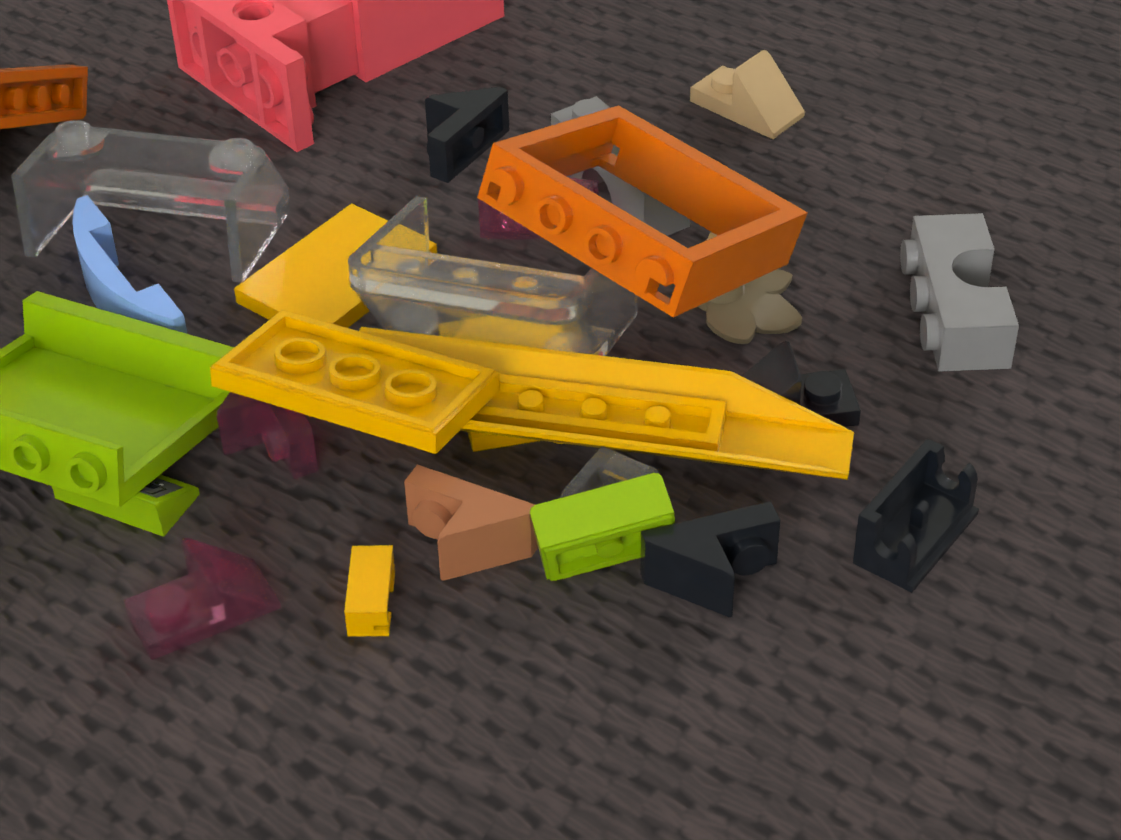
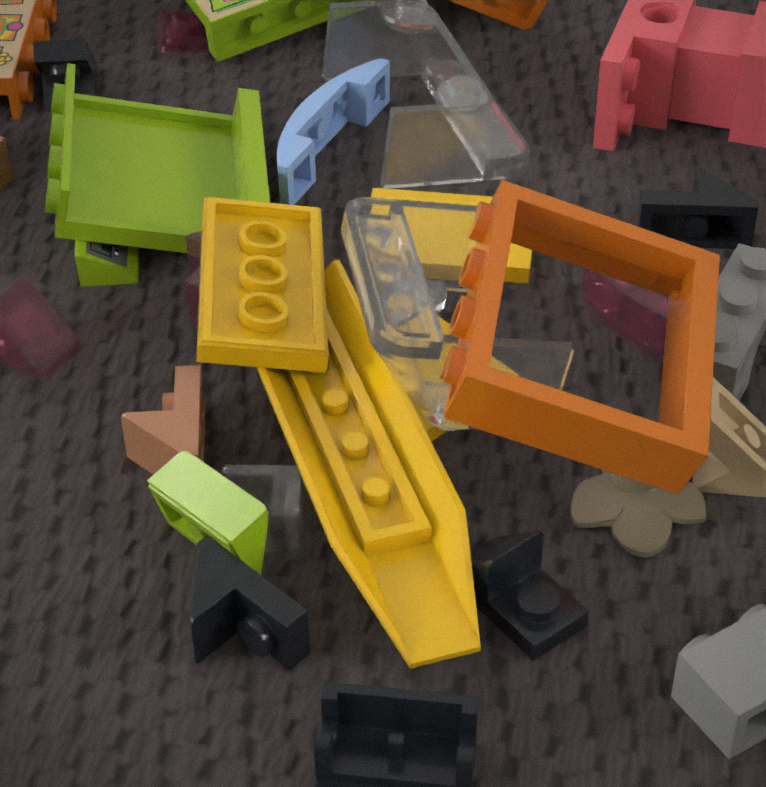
camera: 60 degrees right, 0 degrees up
(368, 590) = (93, 401): yellow piece -> none

